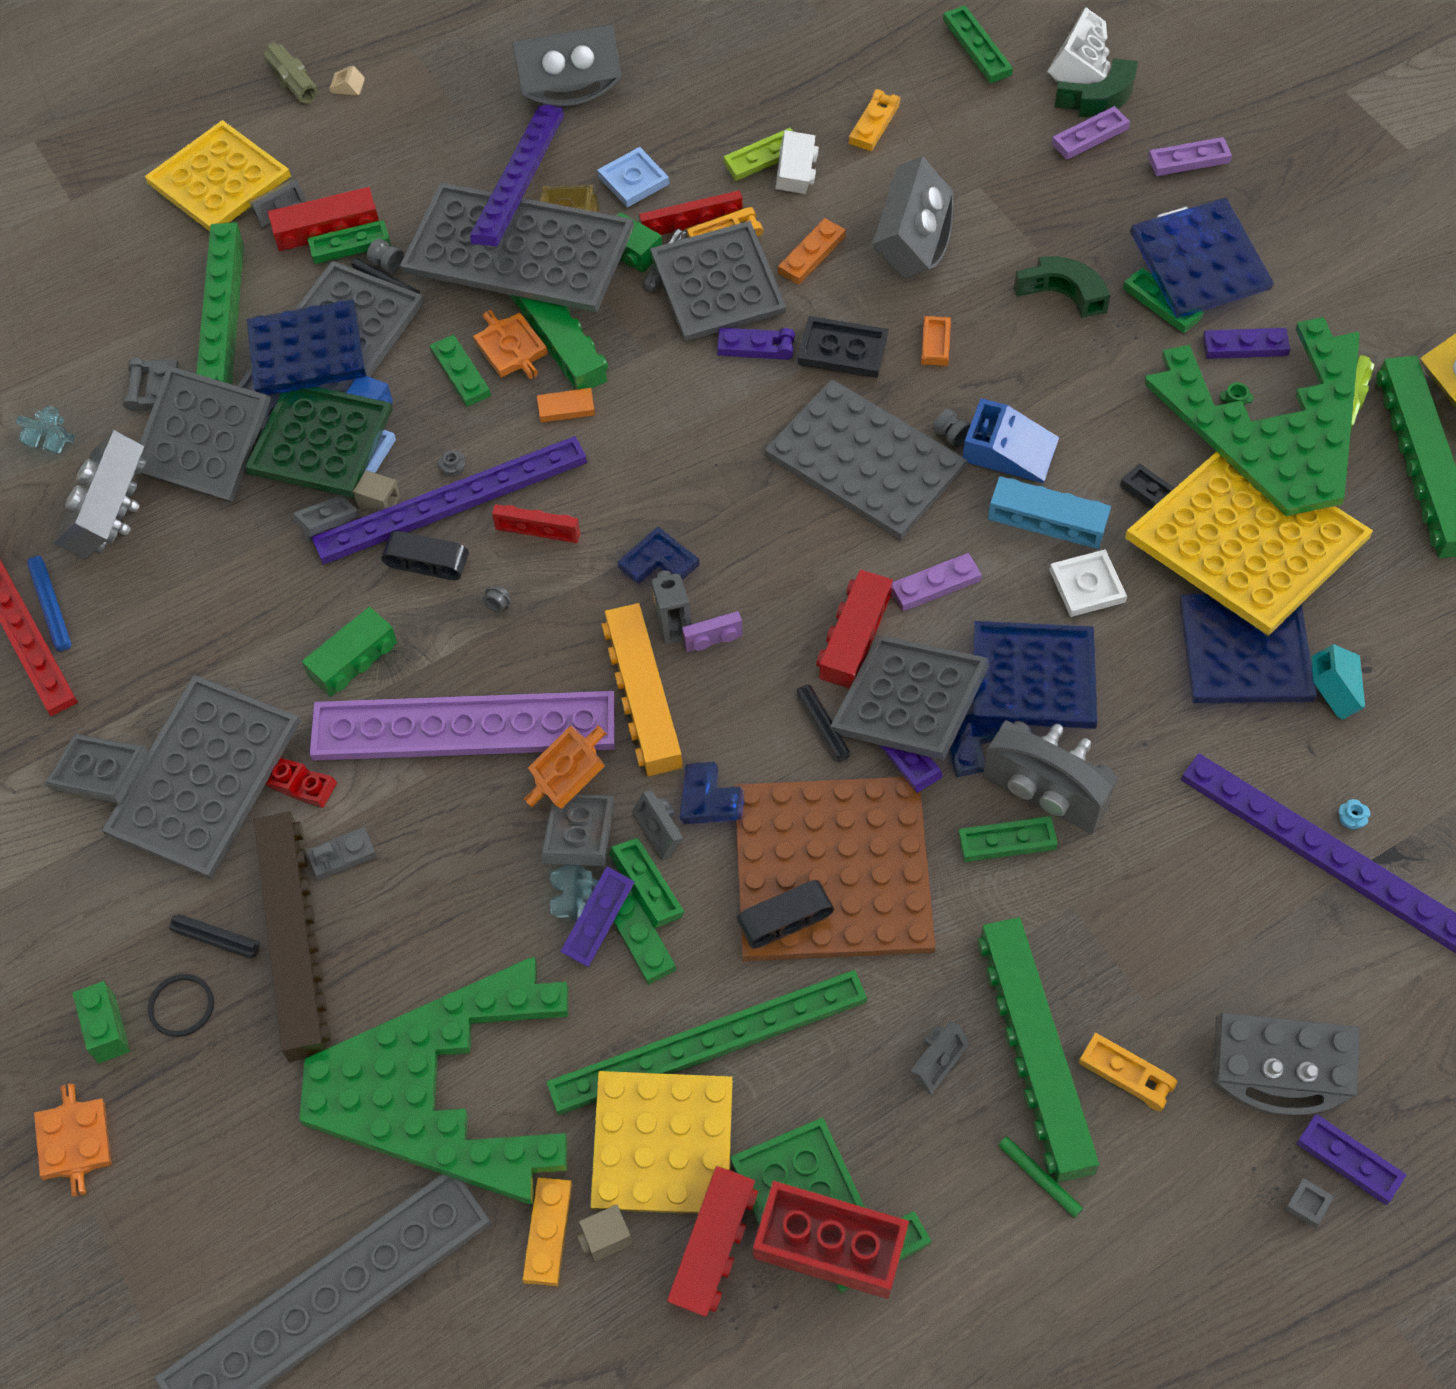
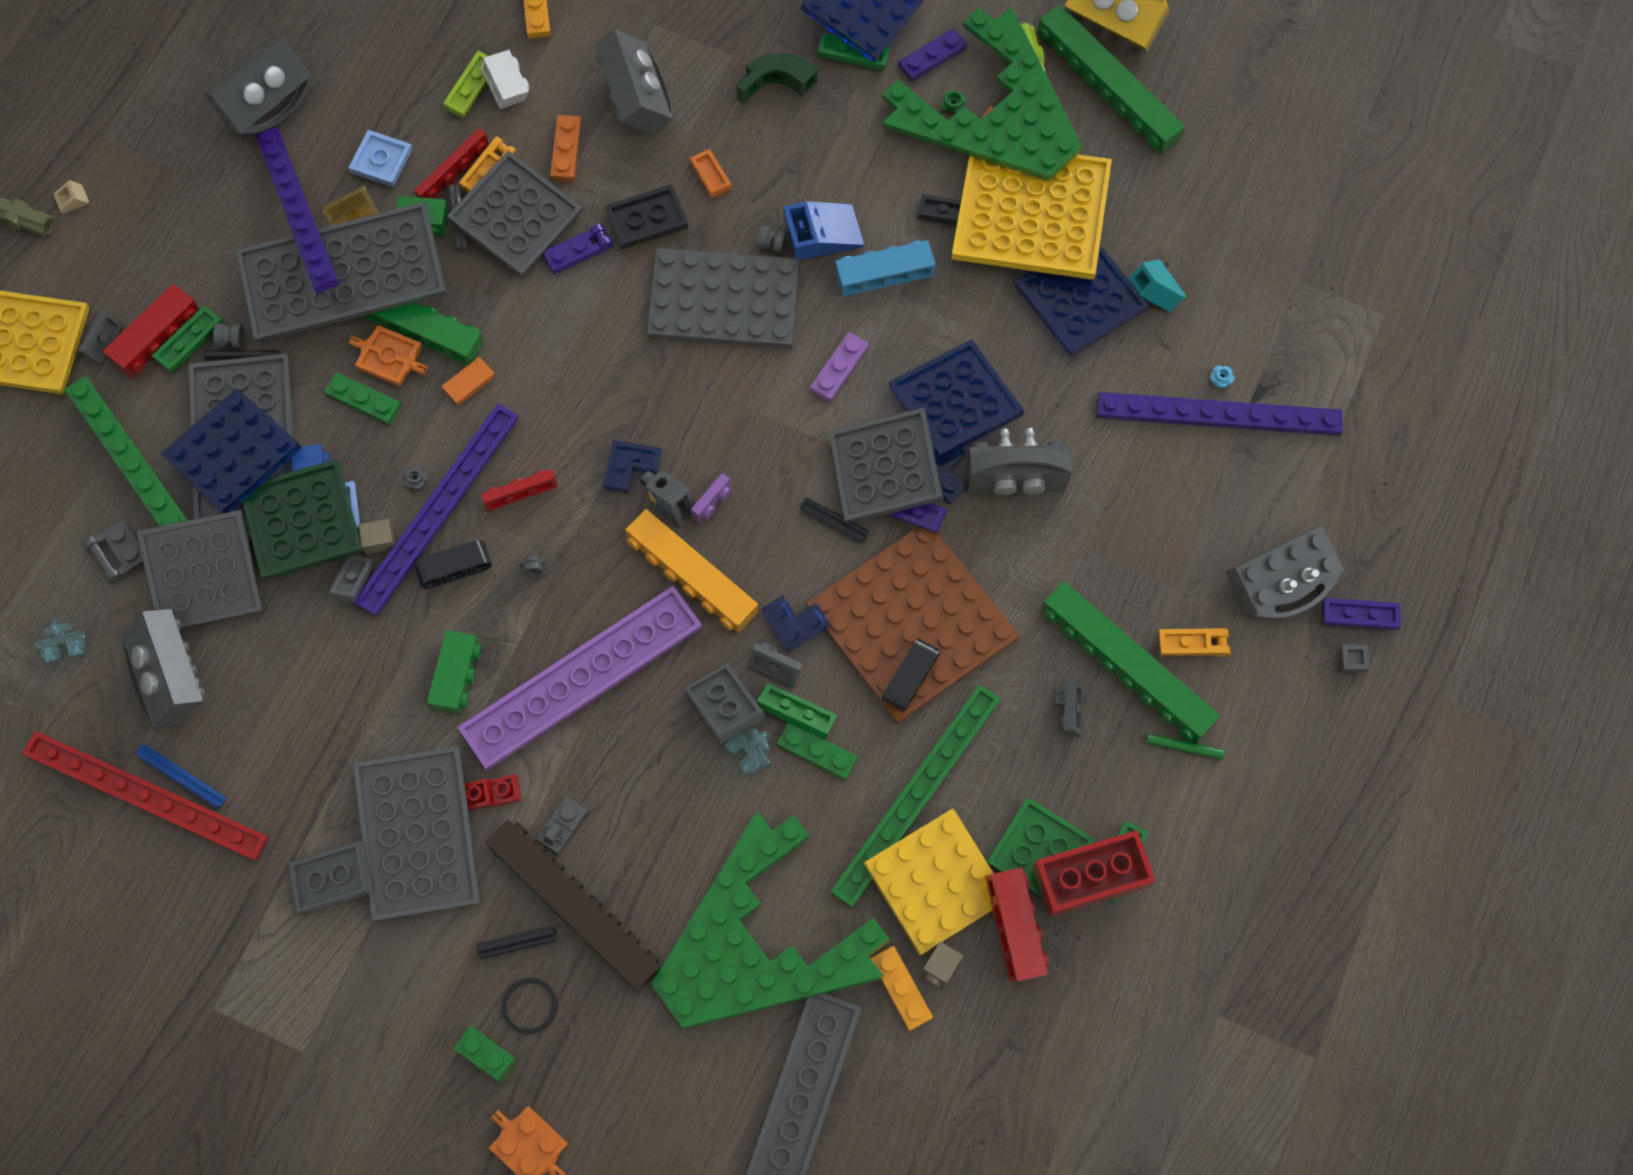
camera: 40 degrees left, 10 degrees up
(566, 766) = (683, 663): orange plate -> none
(597, 916) = (783, 756): dark purple plate -> none
(855, 629) = (810, 435): red brick -> none
(1007, 839) = (1015, 529): green plate -> none
(1088, 583) = (945, 307): white plate -> none

